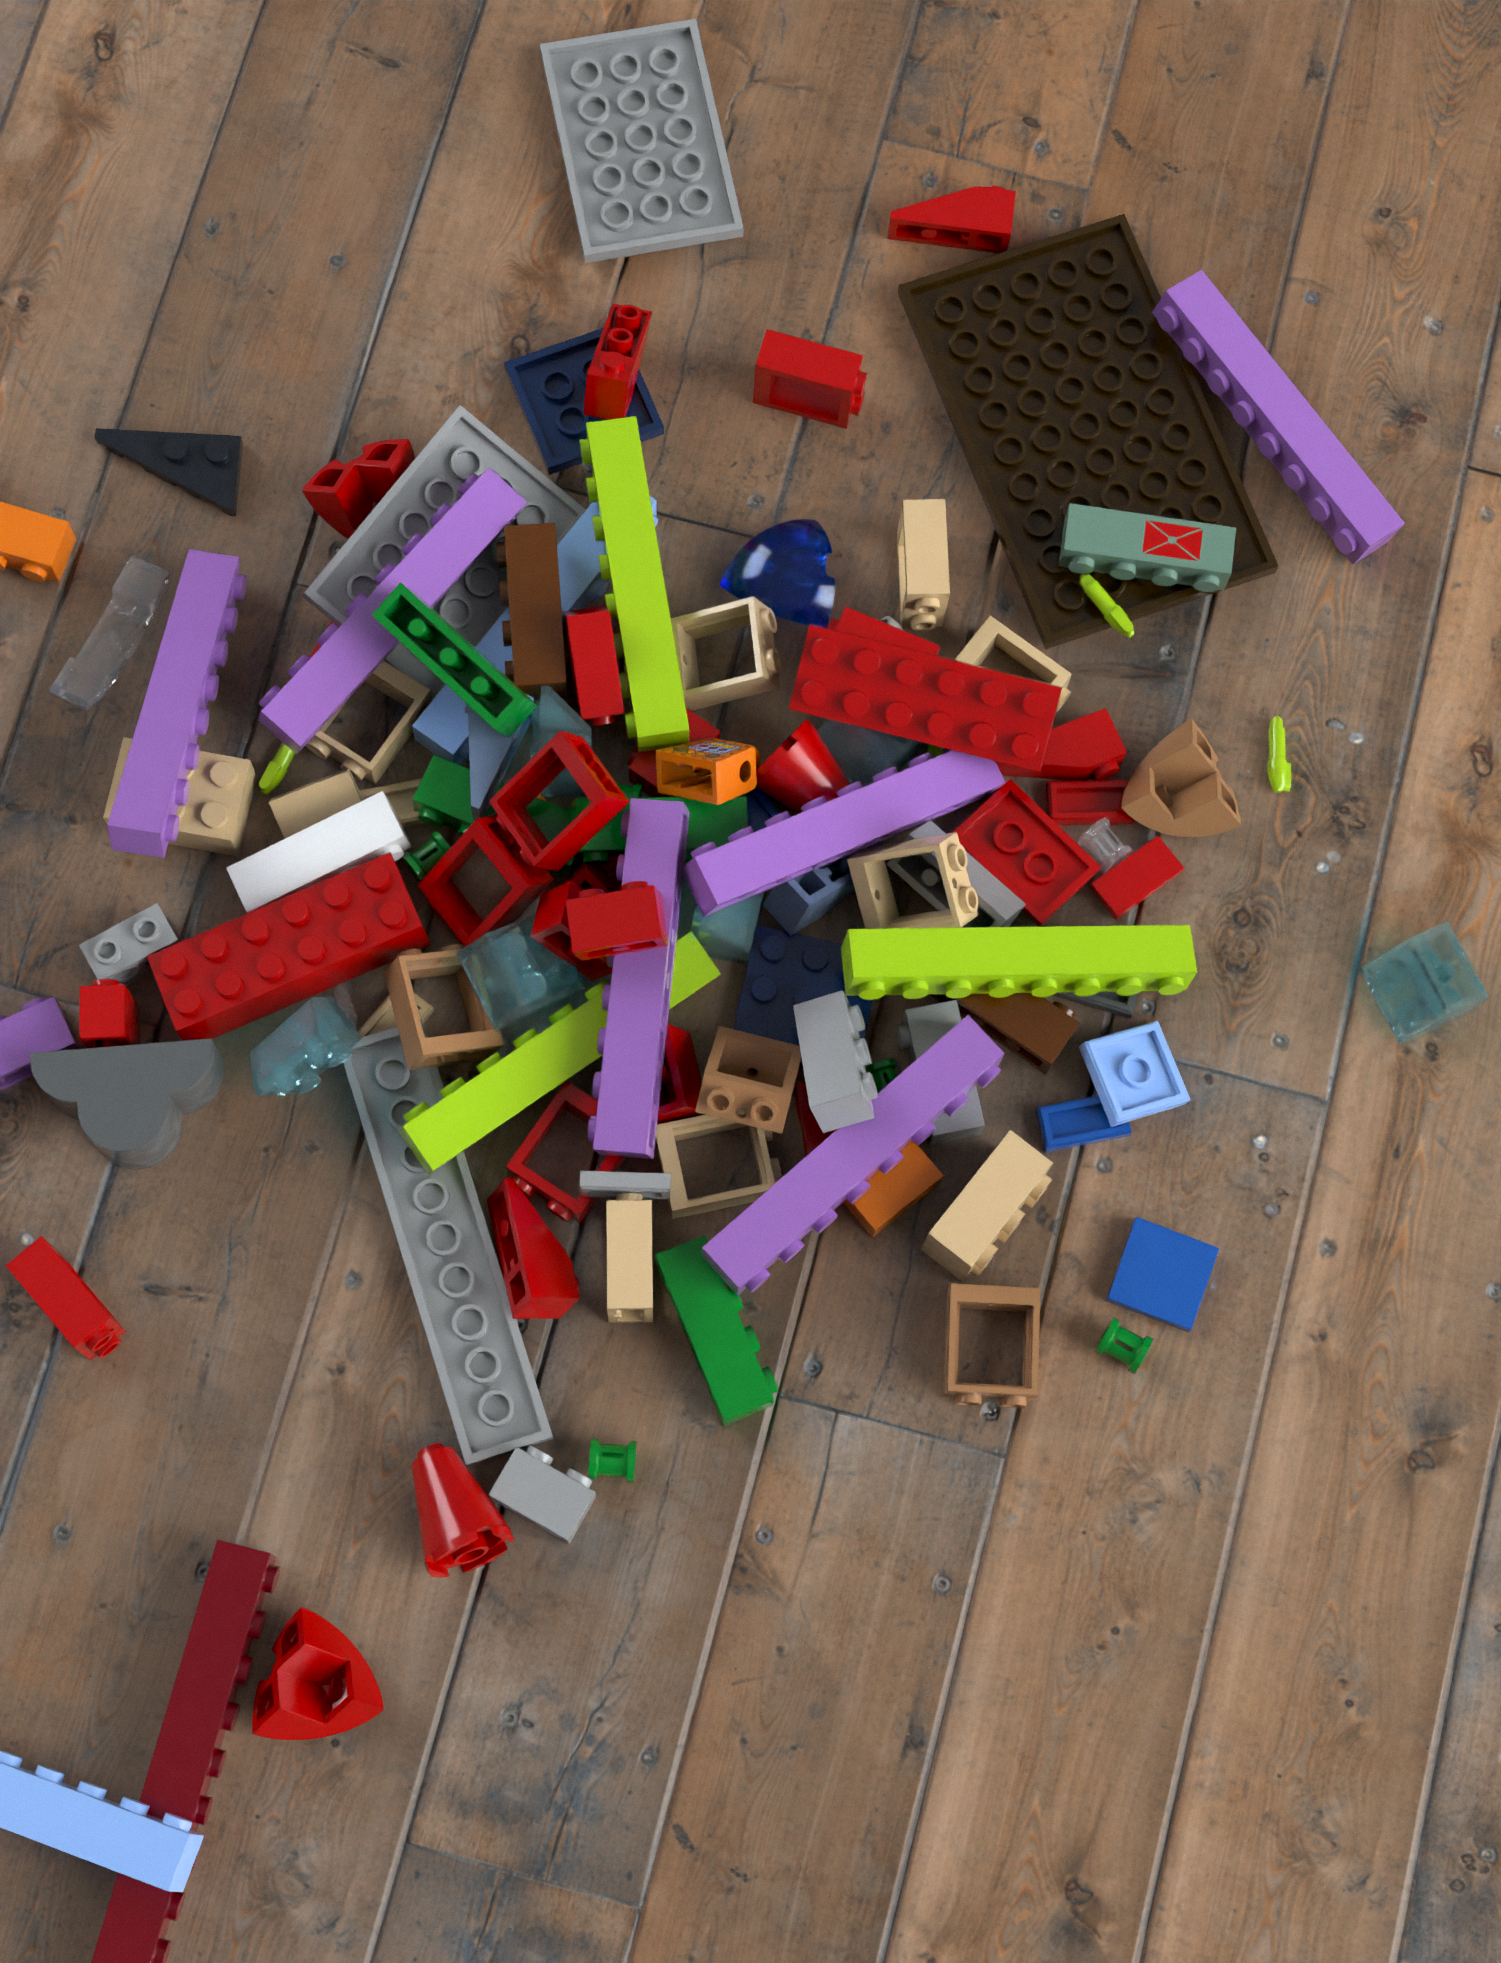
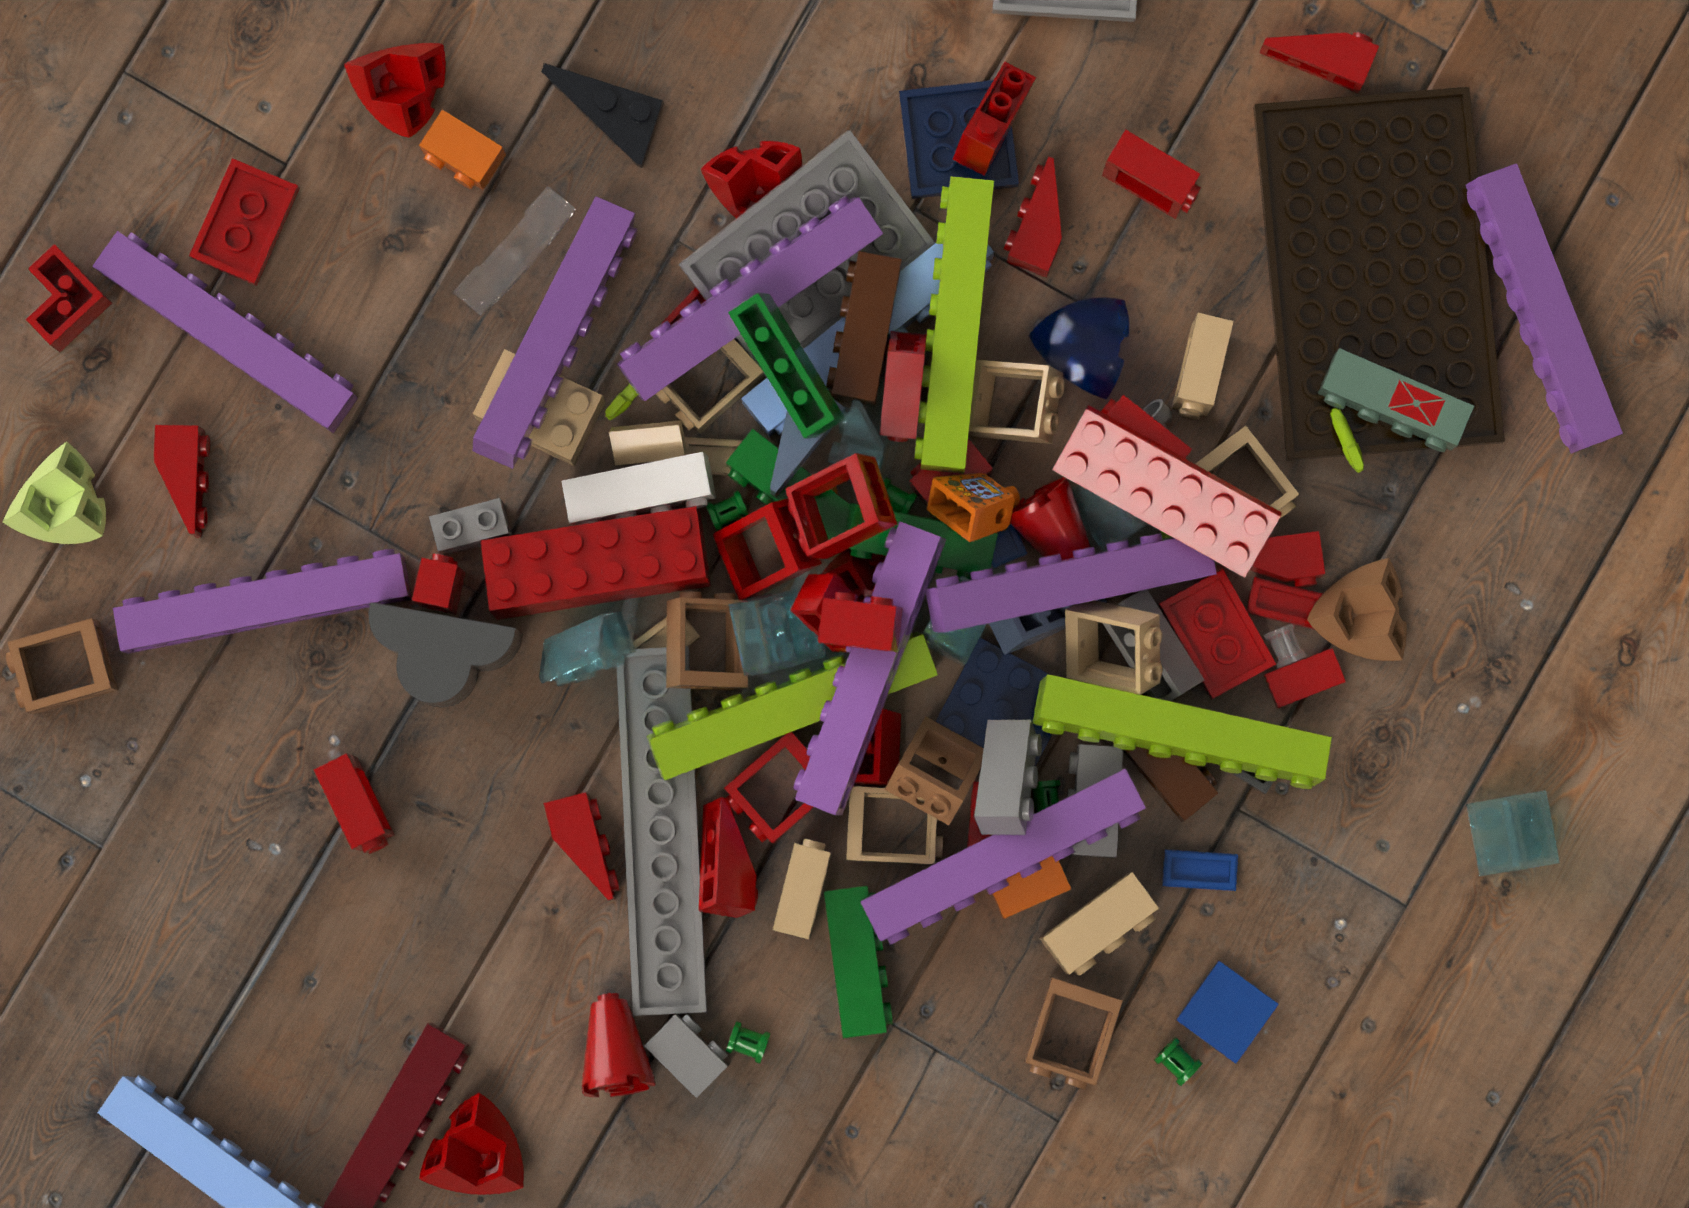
camera: 25 degrees right, 10 degrees up
(343, 1269) = (576, 832): none -> red slope
(610, 1184) = (813, 832): light grey tile -> none
(702, 472) = (1040, 230): none -> red slope
(1134, 1073) = (1252, 843): light blue tile -> none
(1278, 769) = (1451, 614): lime piece -> none

